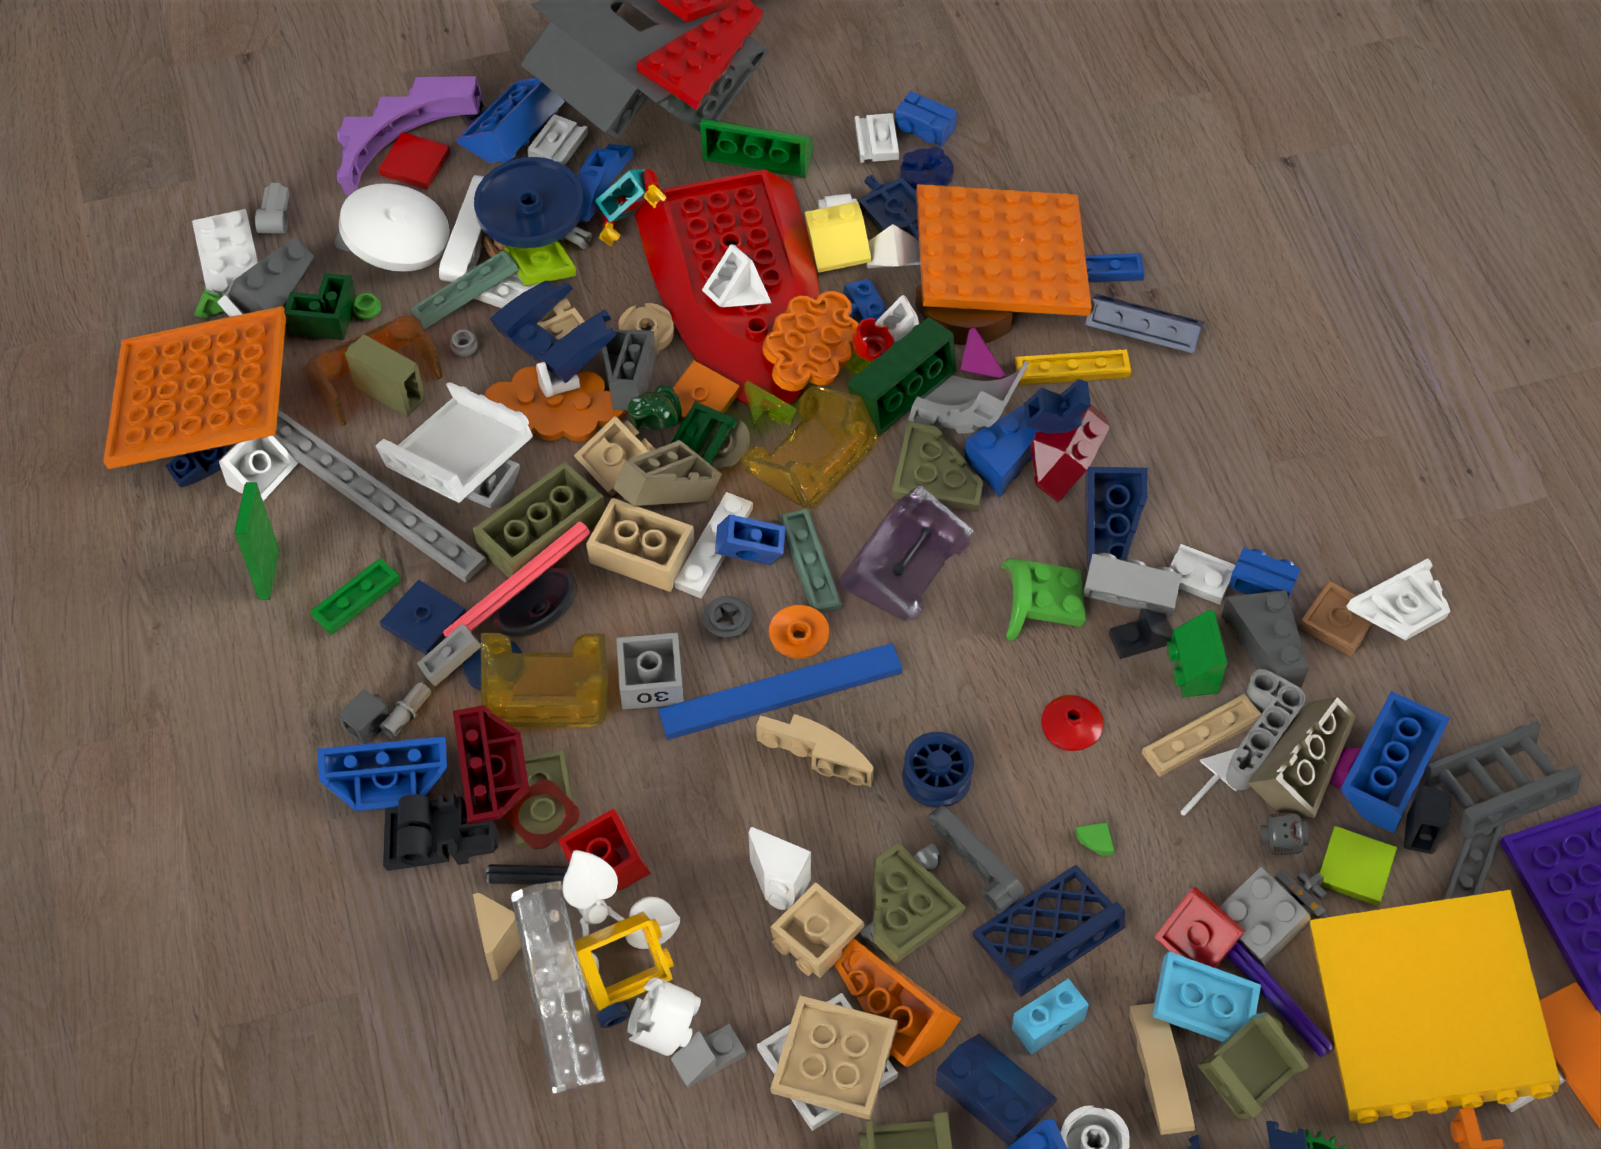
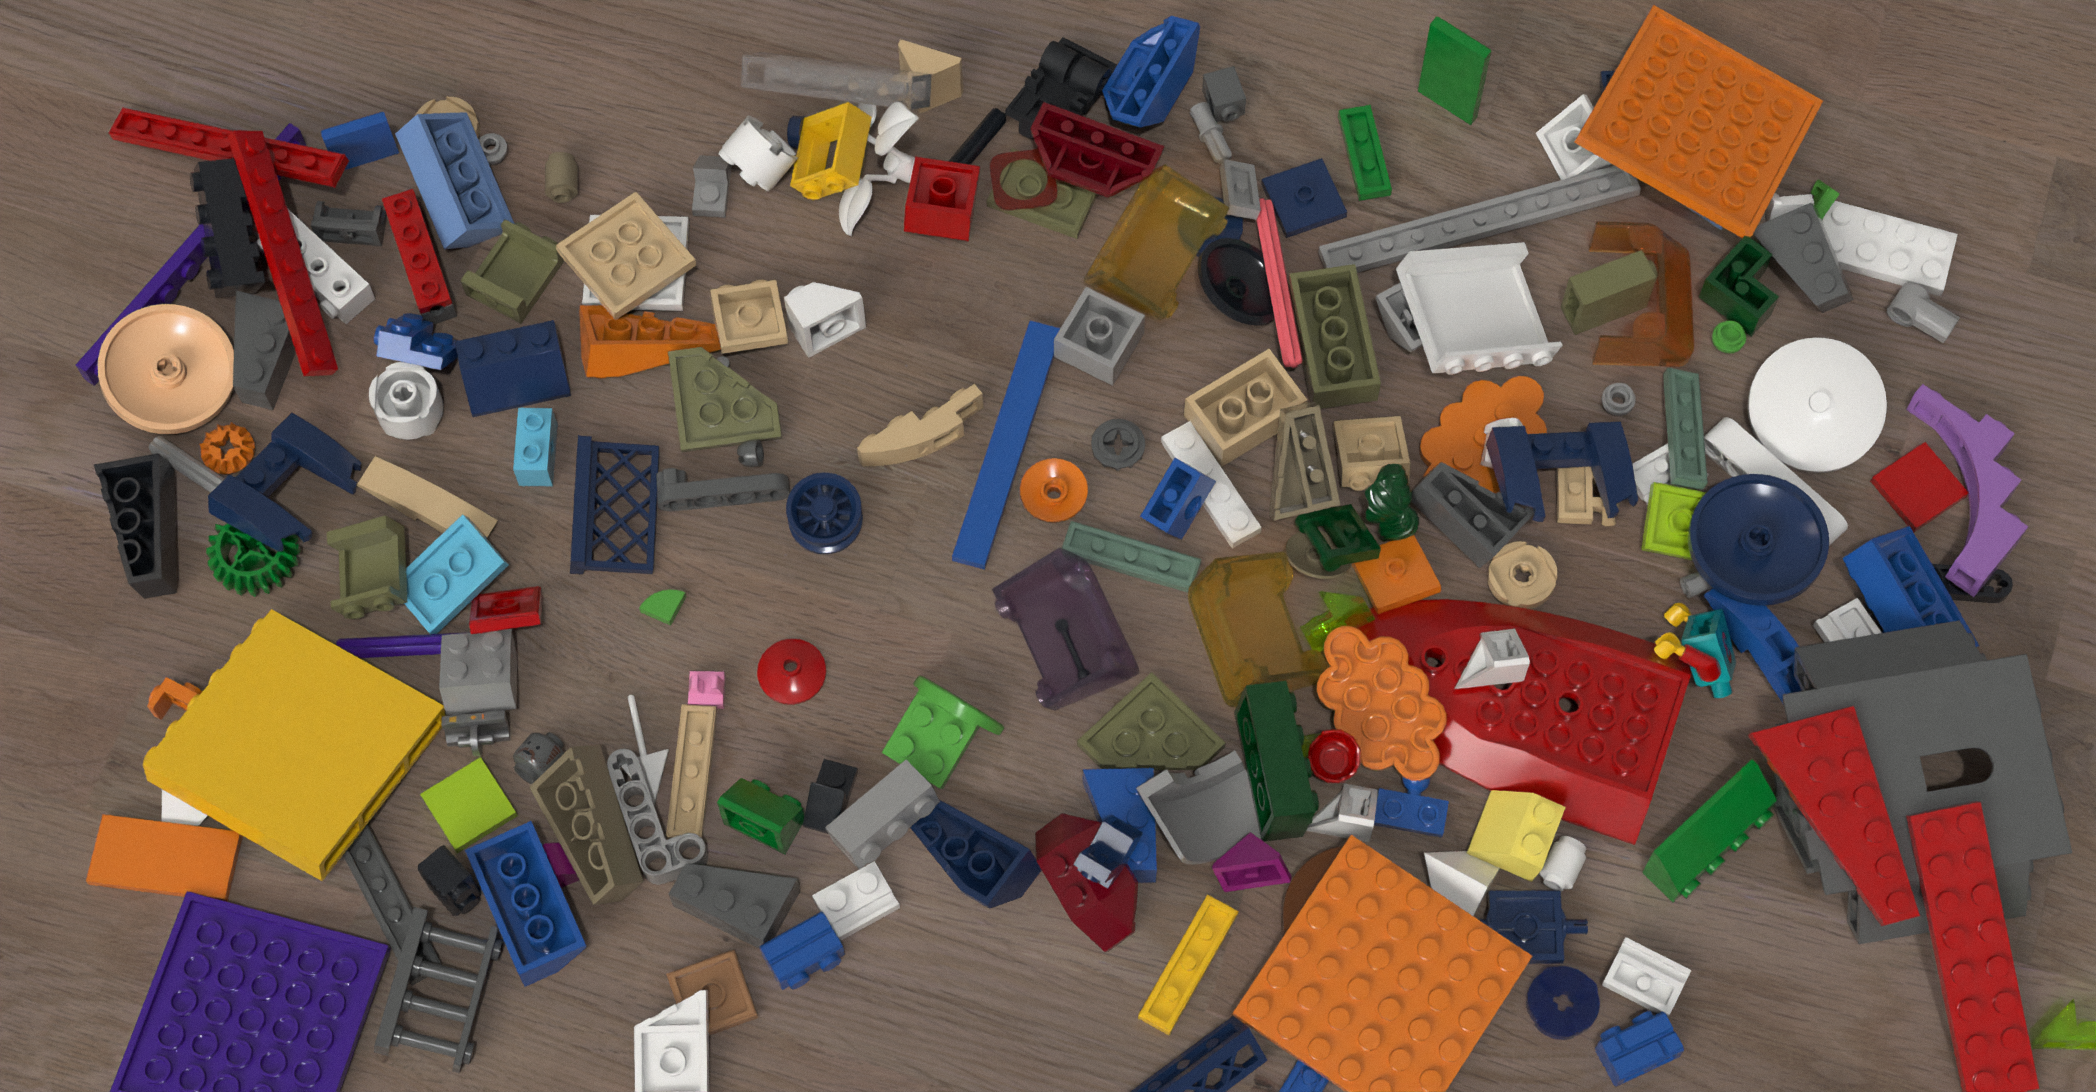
camera: 125 degrees right, 10 degrees up
(1134, 765) = (707, 688): none -> bright pink tile

